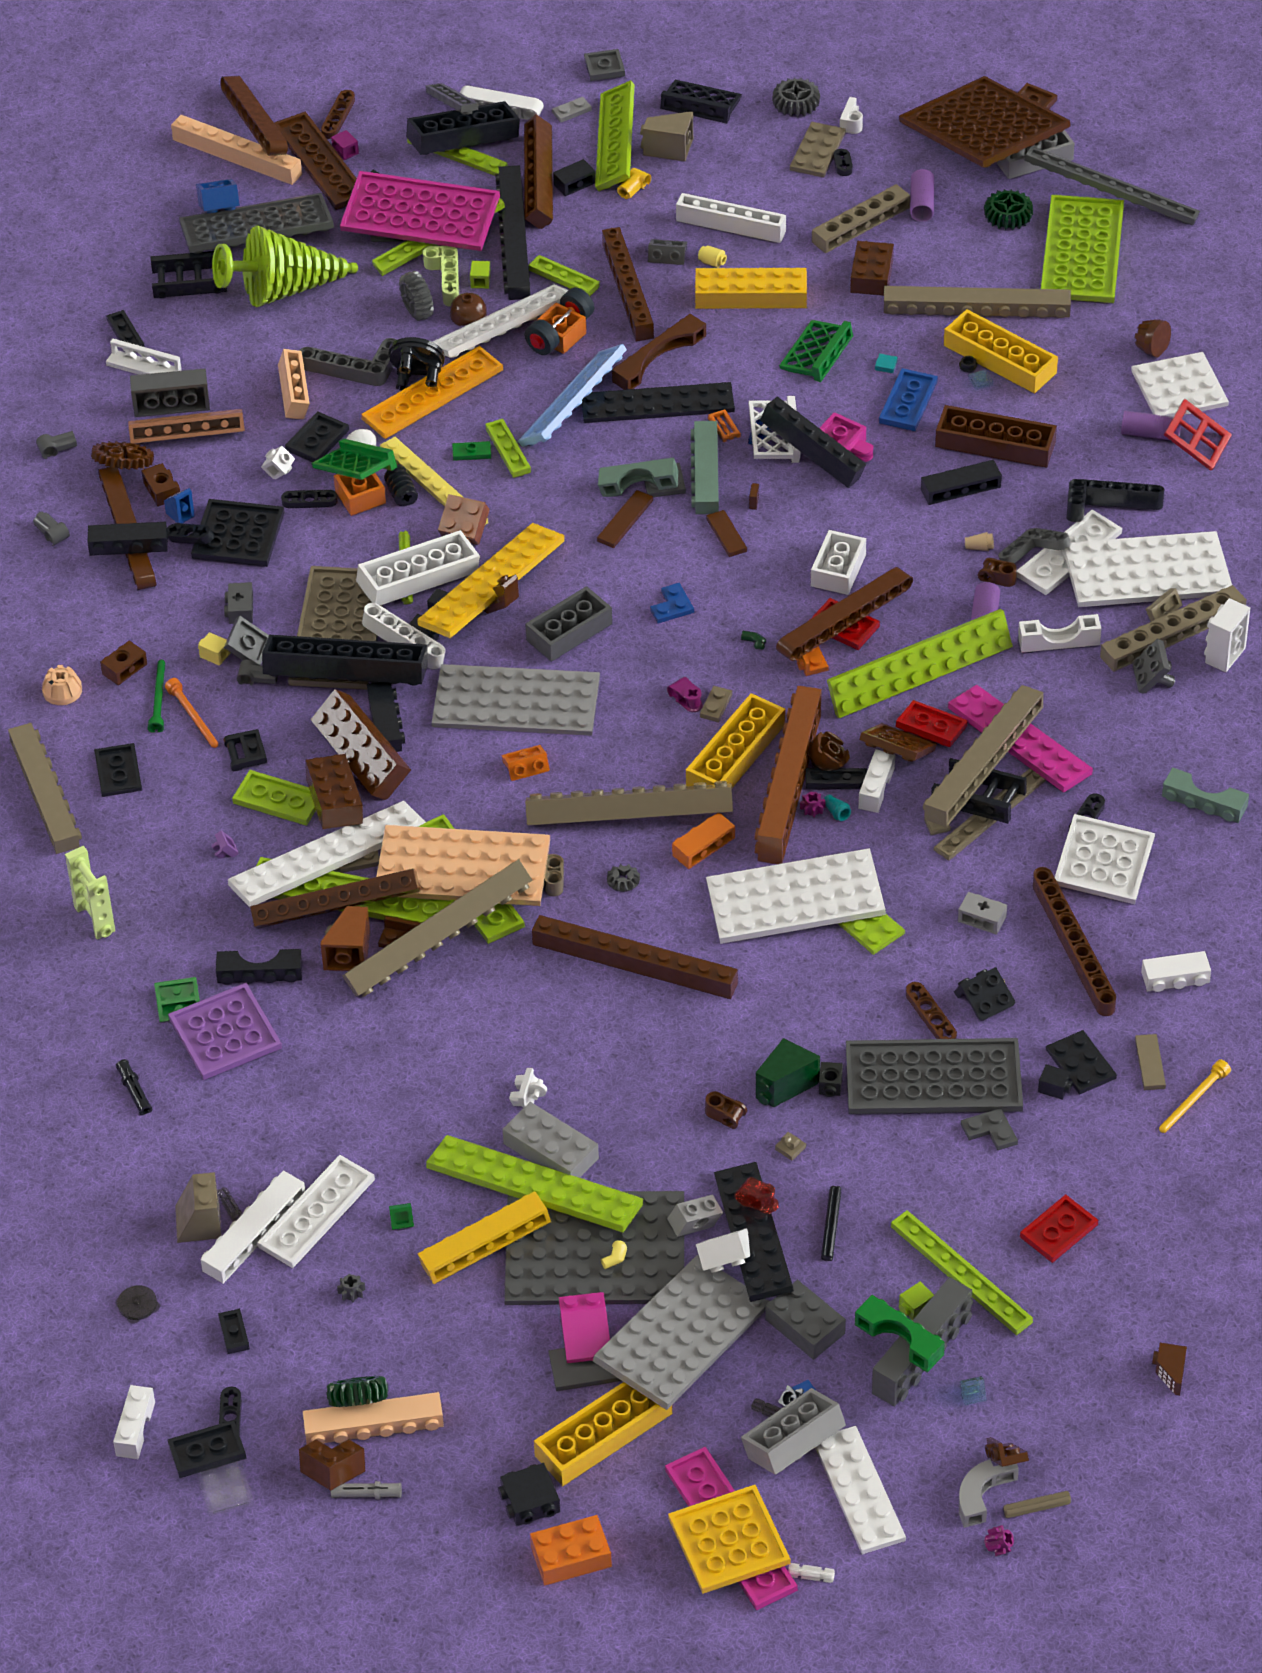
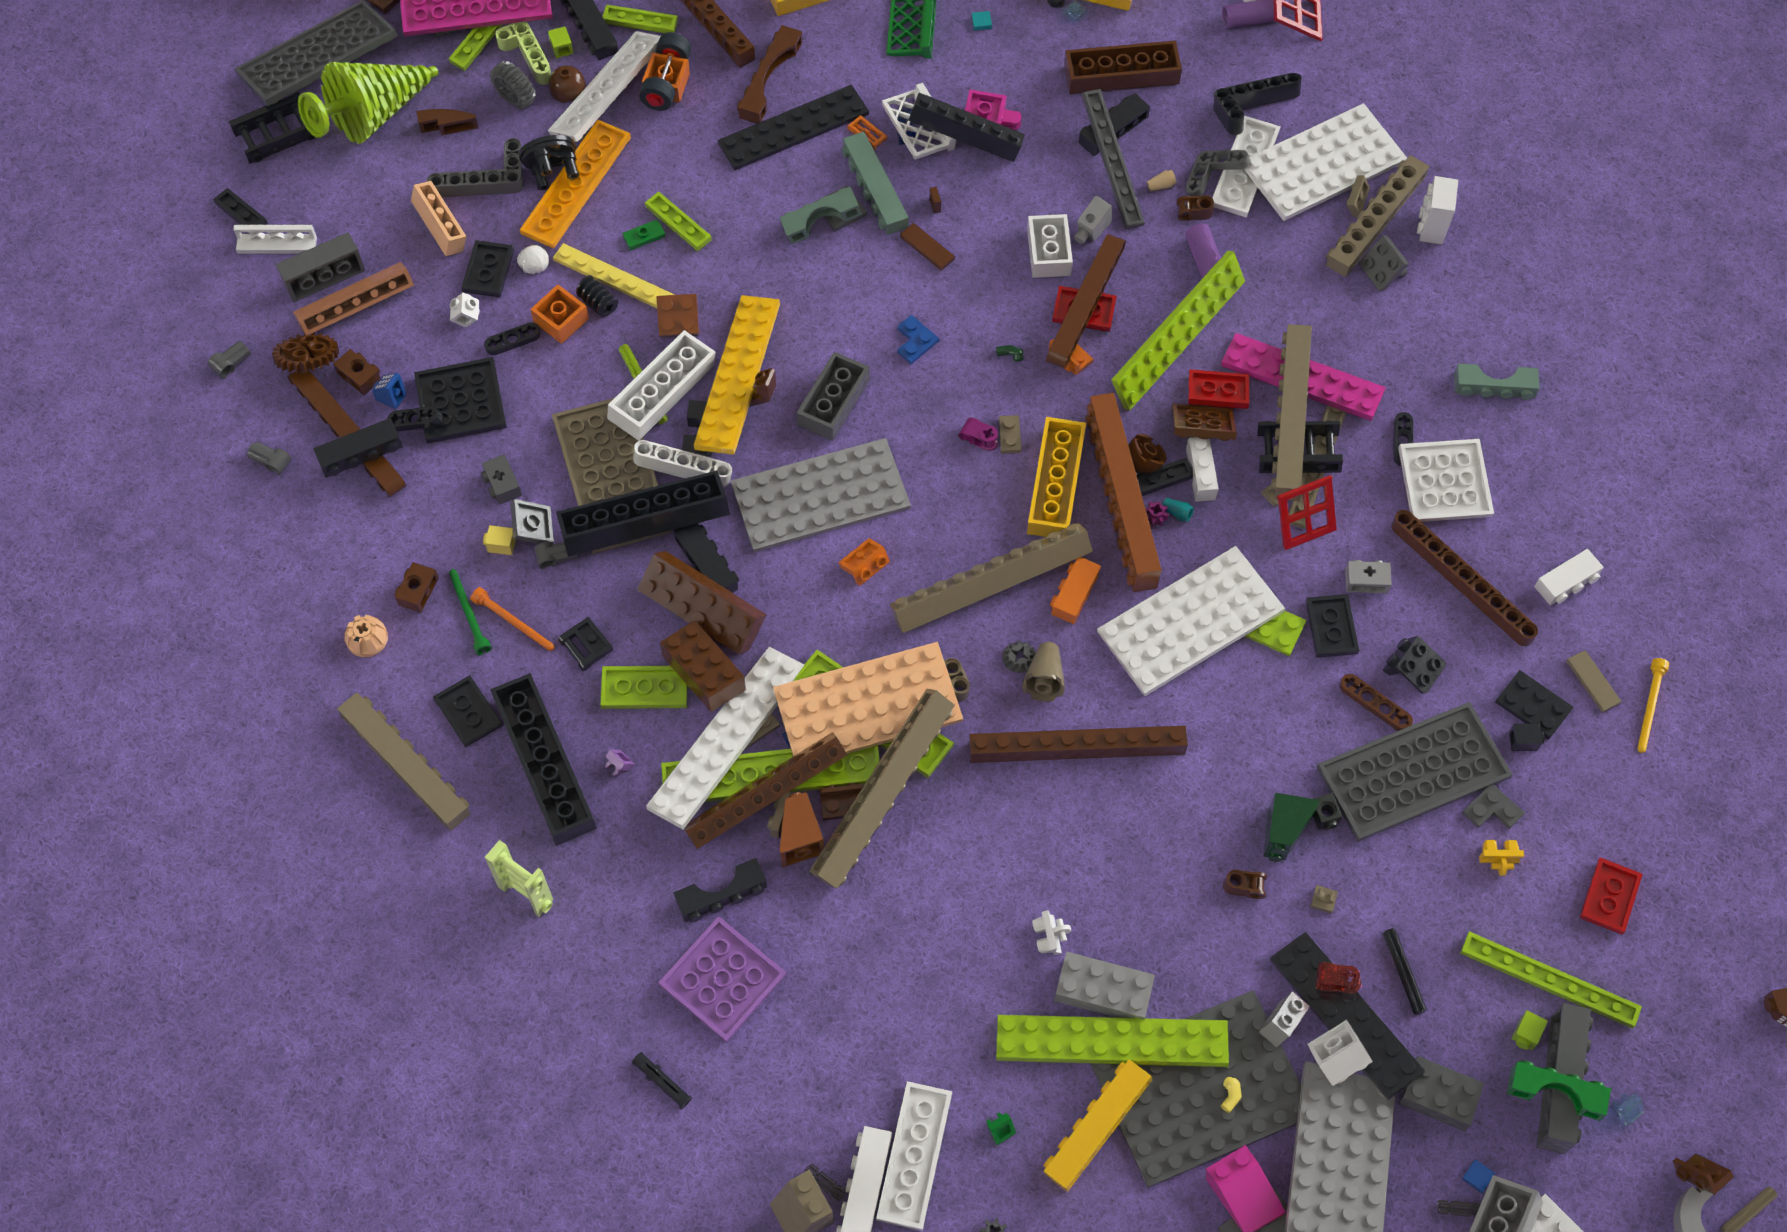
camera: 25 degrees left, 15 degrees up
(161, 821) = (543, 759): none -> black brick
(175, 995) = (654, 957): green slope -> none
(217, 195) = (264, 34): blue brick -> none
(342, 310) = (446, 120): none -> reddish brown slope
(356, 460) = (543, 276): green fence -> none
(572, 396) = (713, 146): light blue plate -> none
(625, 519) = (825, 262): reddish brown tile -> none
(635, 894) = (1045, 674): none -> dark tan cone
(788, 1394) = (1470, 1194): black plate -> none
(892, 552) = (1094, 220): none -> light grey torso
(908, 399) = (1022, 53): blue plate -> none
(926, 941) = (1332, 625): none -> black plate
(940, 508) = (1113, 159): none -> dark grey tile
(972, 838) = (1286, 519): none -> red window
(972, 1165) = (1501, 859): none -> yellow hips
(1081, 633) = (1303, 247): white arch -> none

